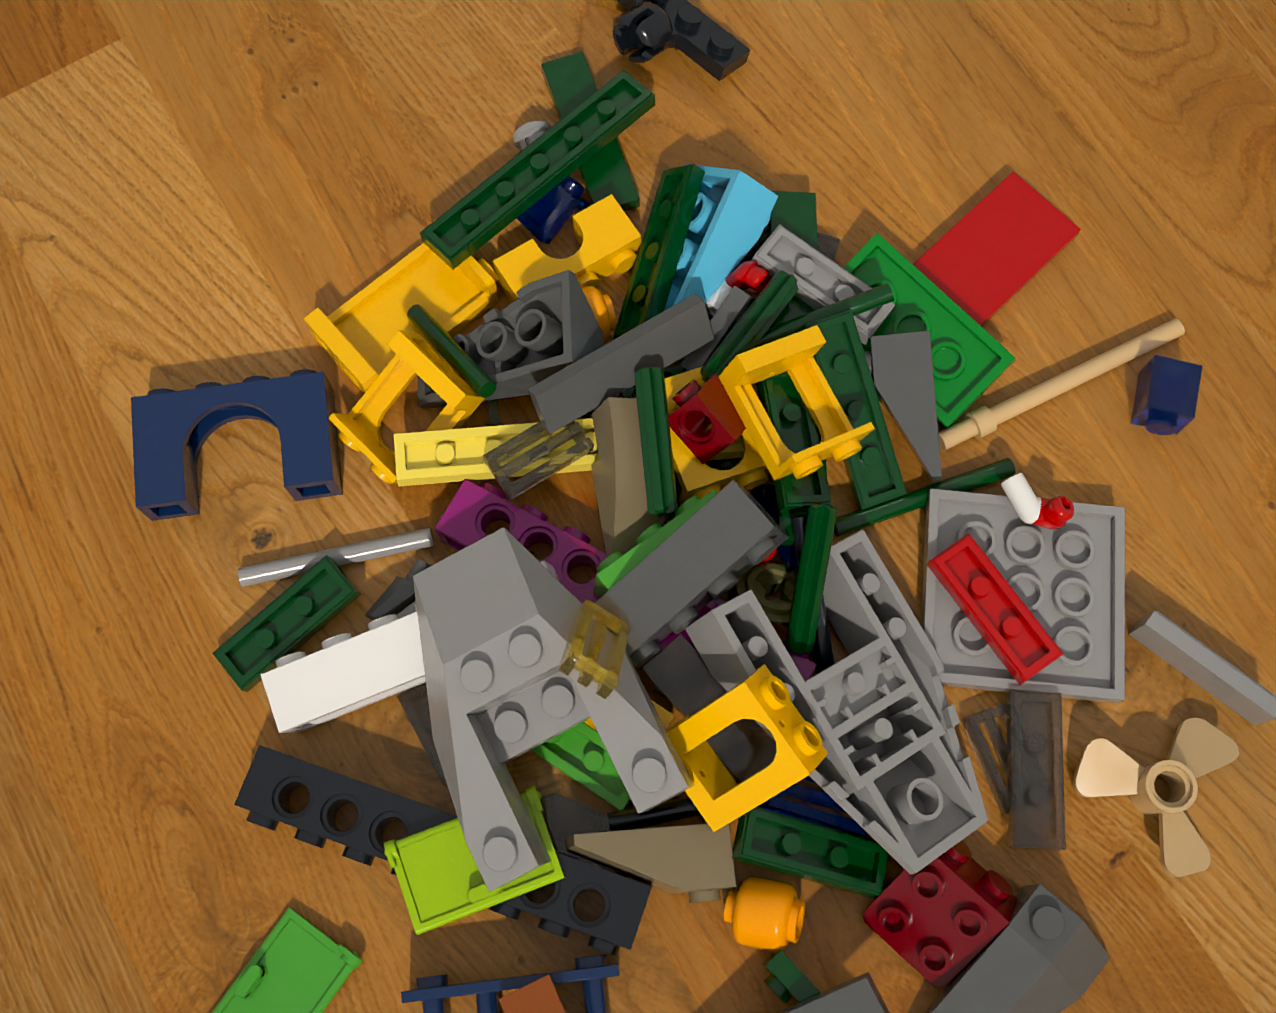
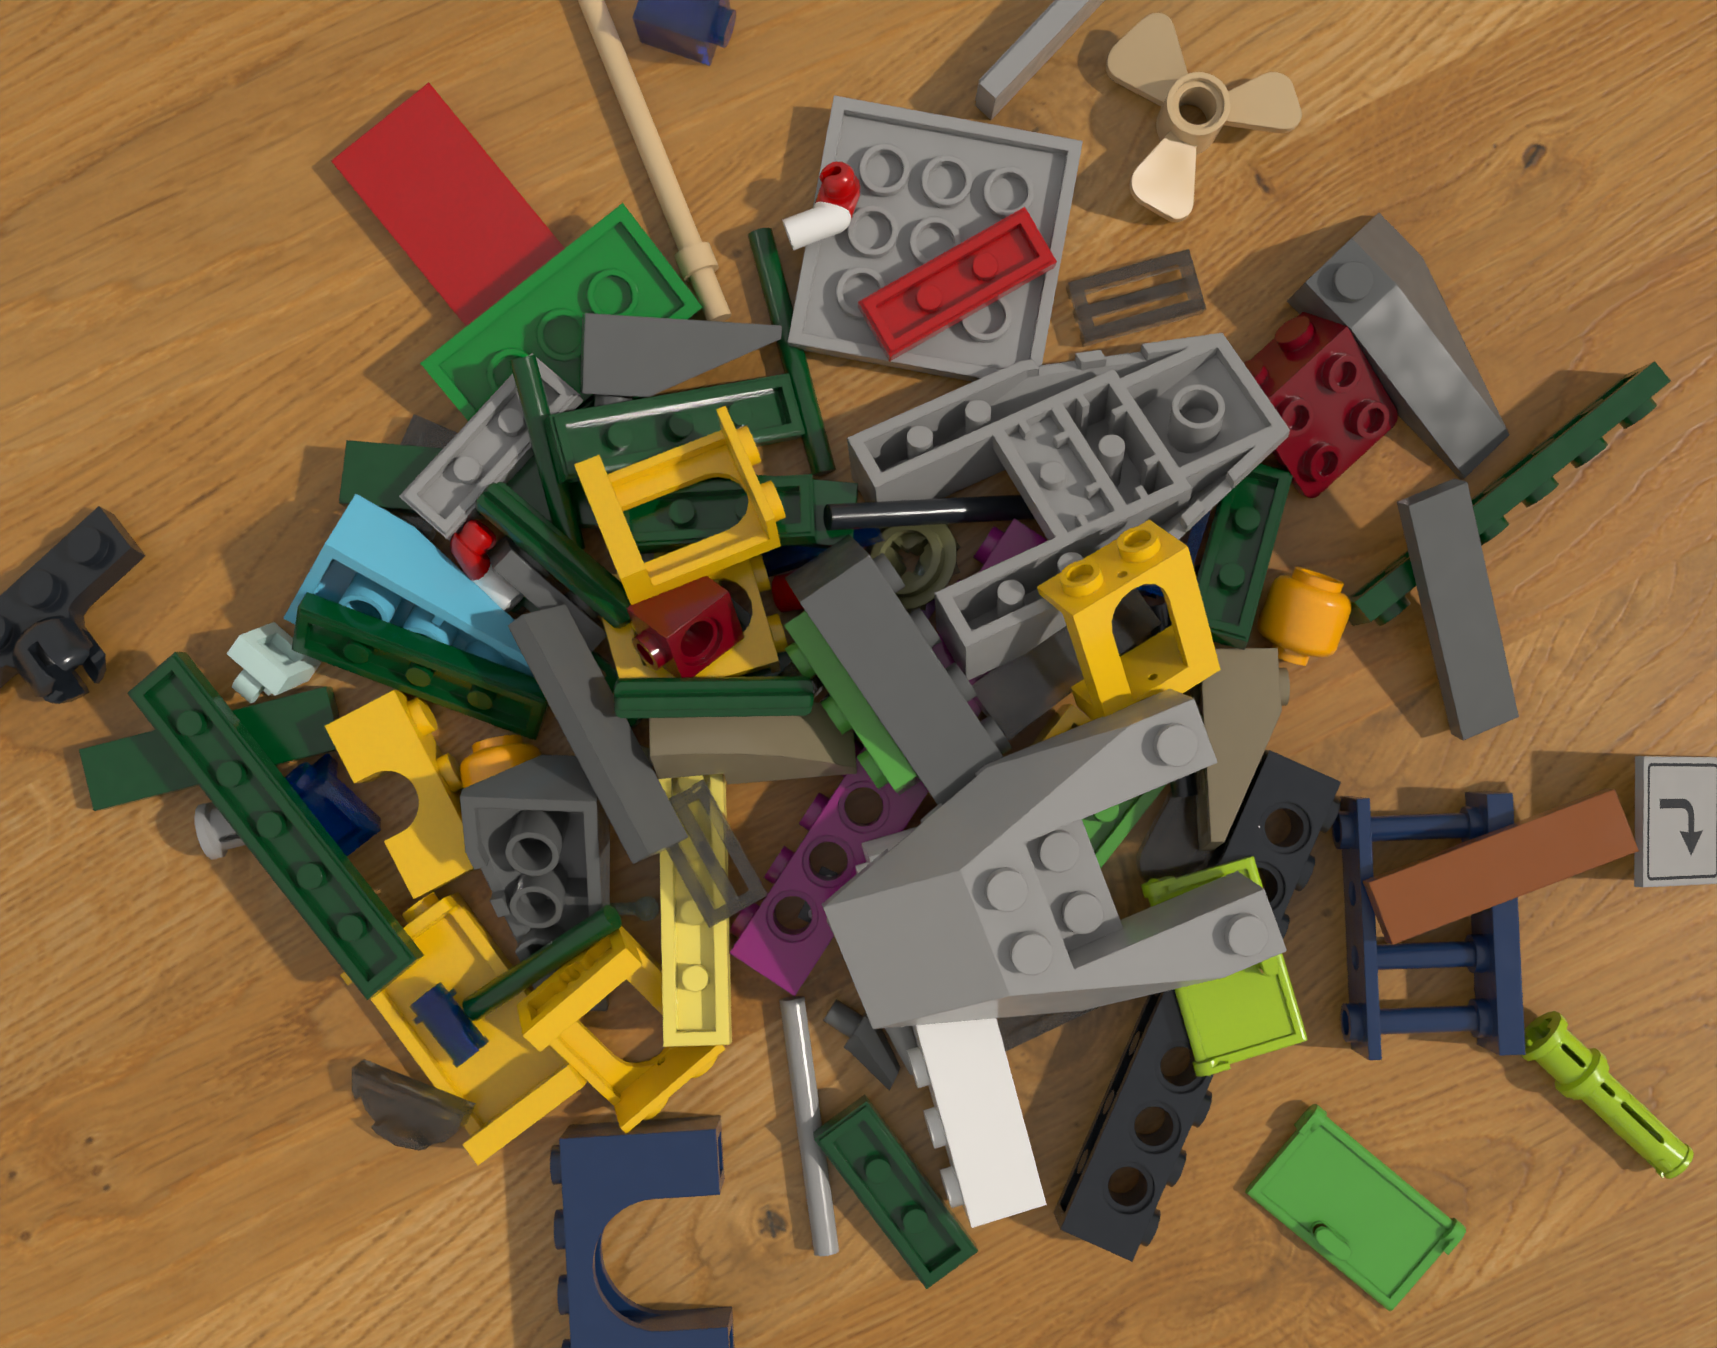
camera: 85 degrees left, 15 degrees up
(341, 276) = (407, 1109): none -> clear smoke tile
(404, 295) = (448, 1024): none -> clear blue pin
(587, 665) = (1020, 829): clear yellow tile -> none
(651, 159) = (269, 663): none -> light aqua tile
(811, 578) = (910, 512): dark green axle -> none
(1035, 770) = (1159, 265): clear smoke tile -> none

